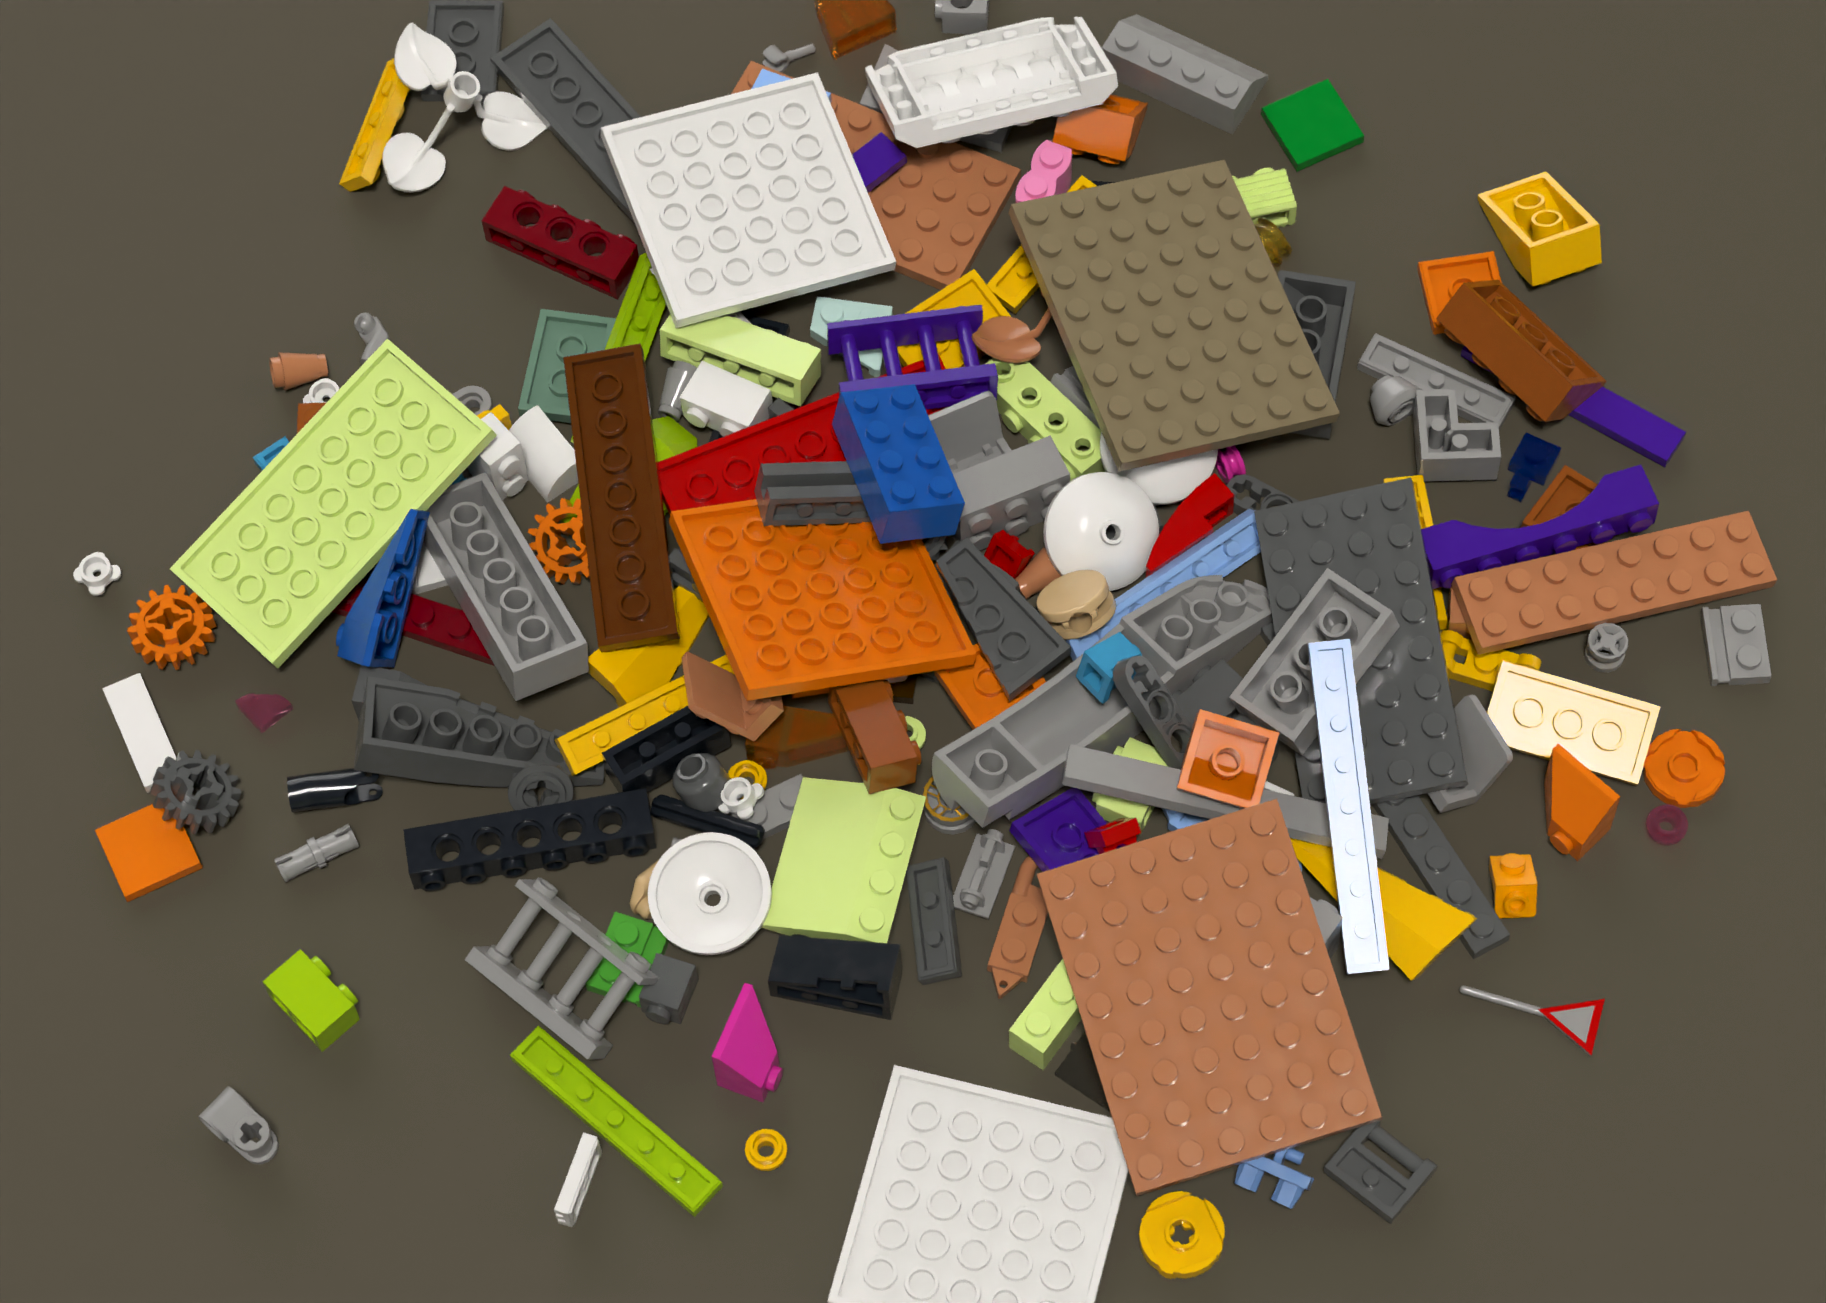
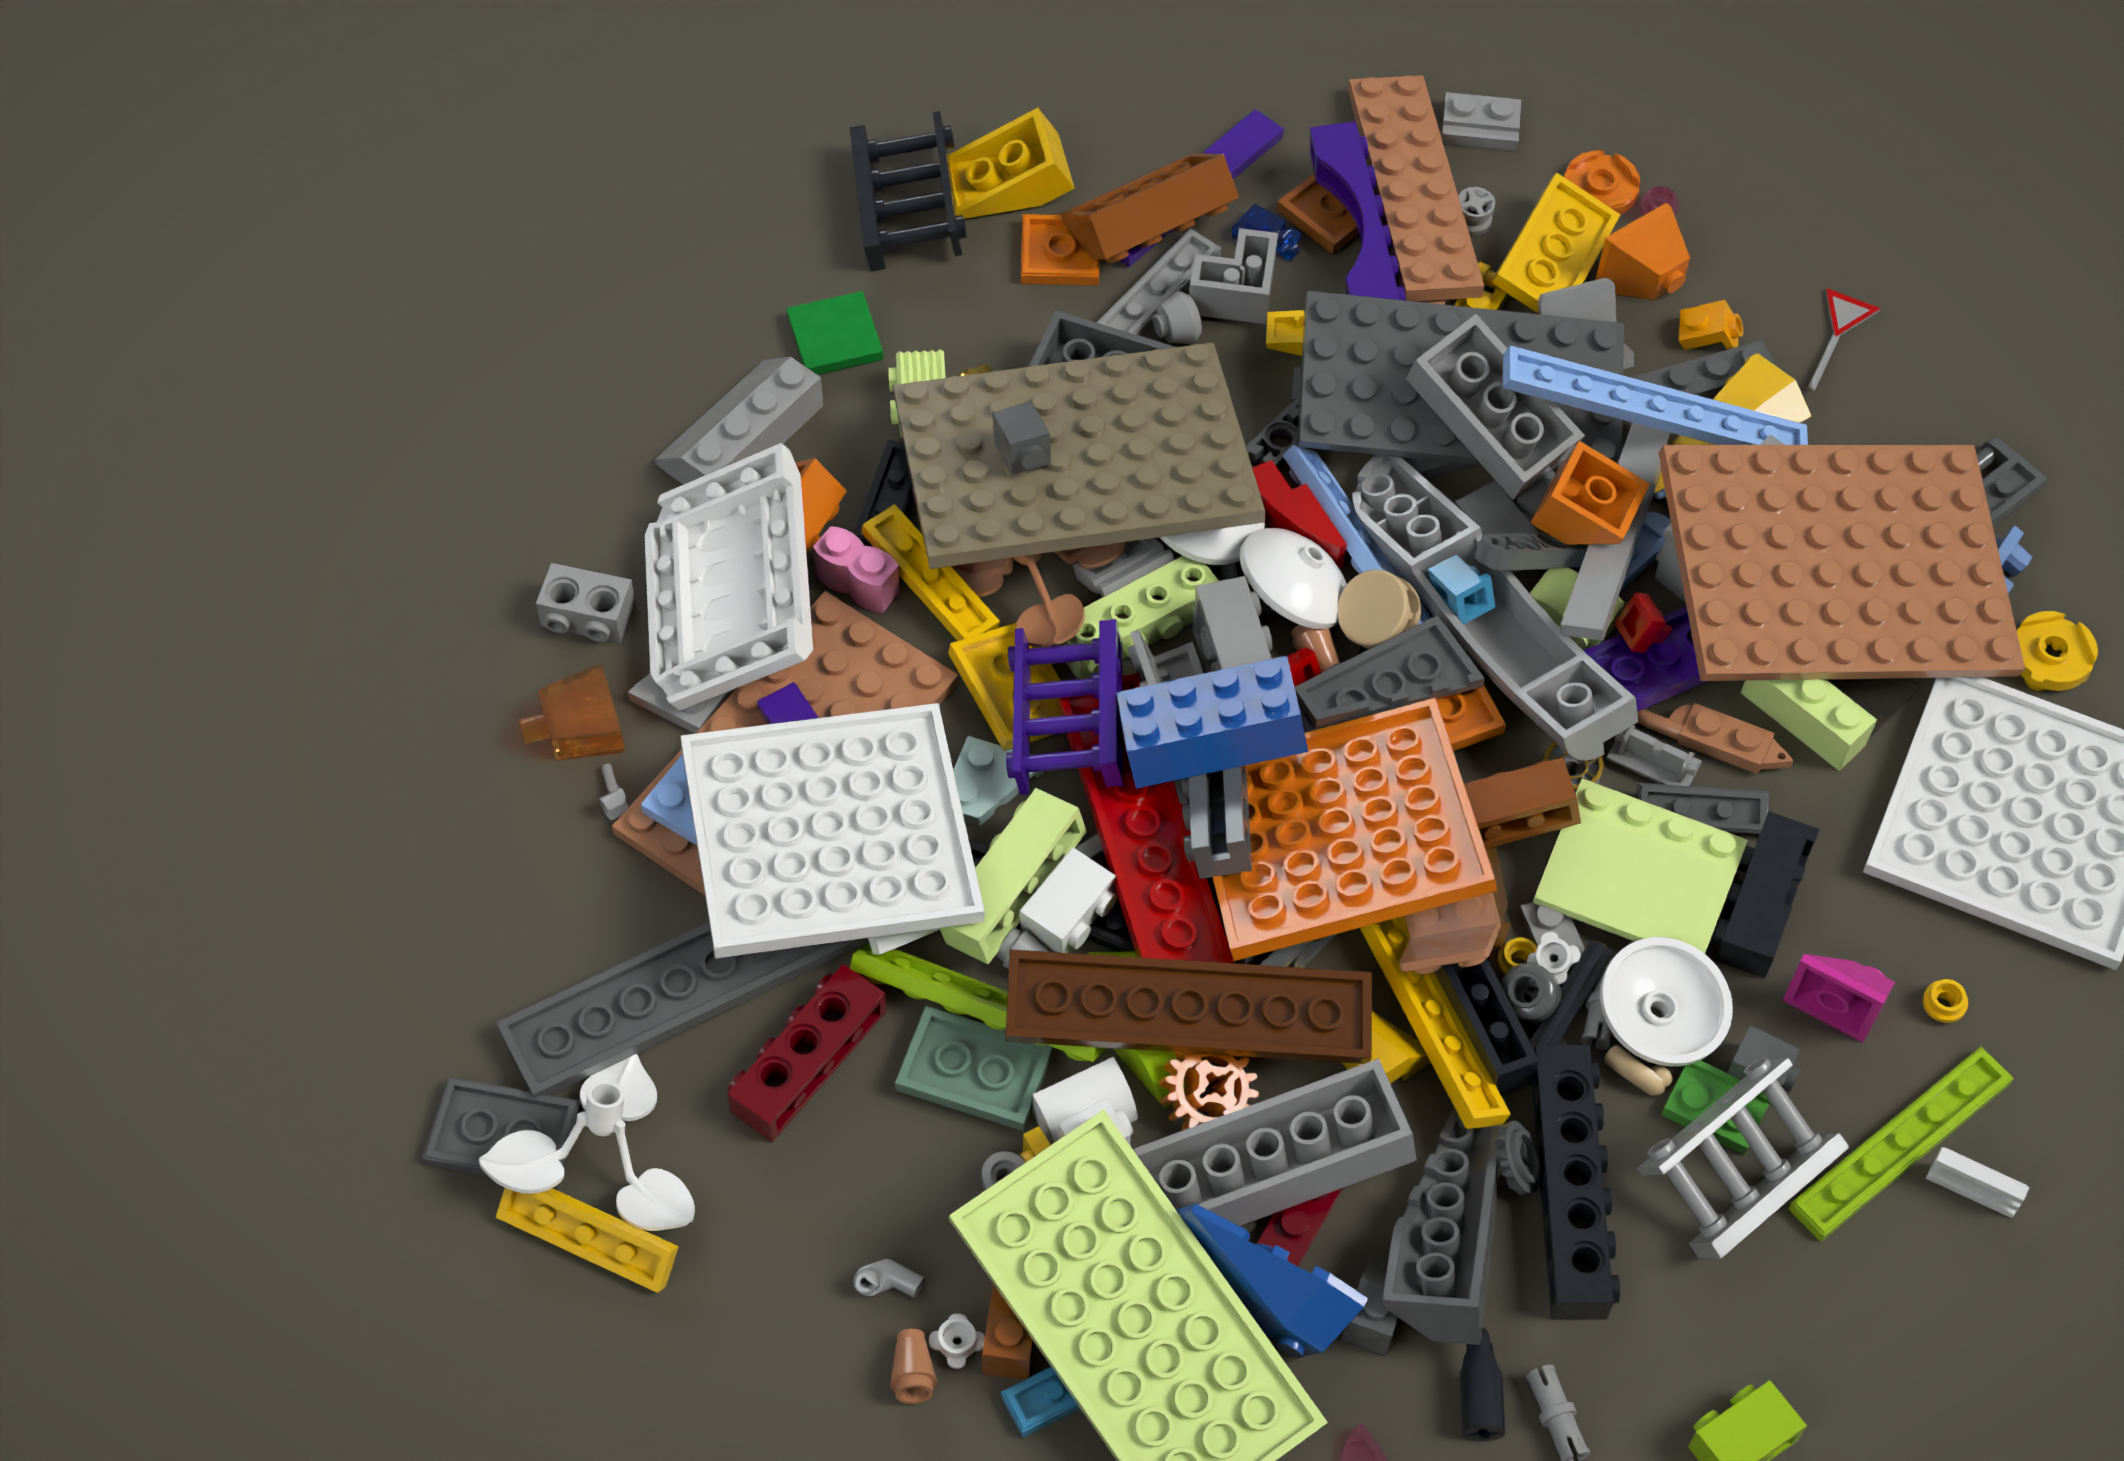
camera: 85 degrees left, 5 degrees down
(1153, 251) = (1021, 438): none -> dark grey brick
(1481, 115) = (871, 180): none -> black fence

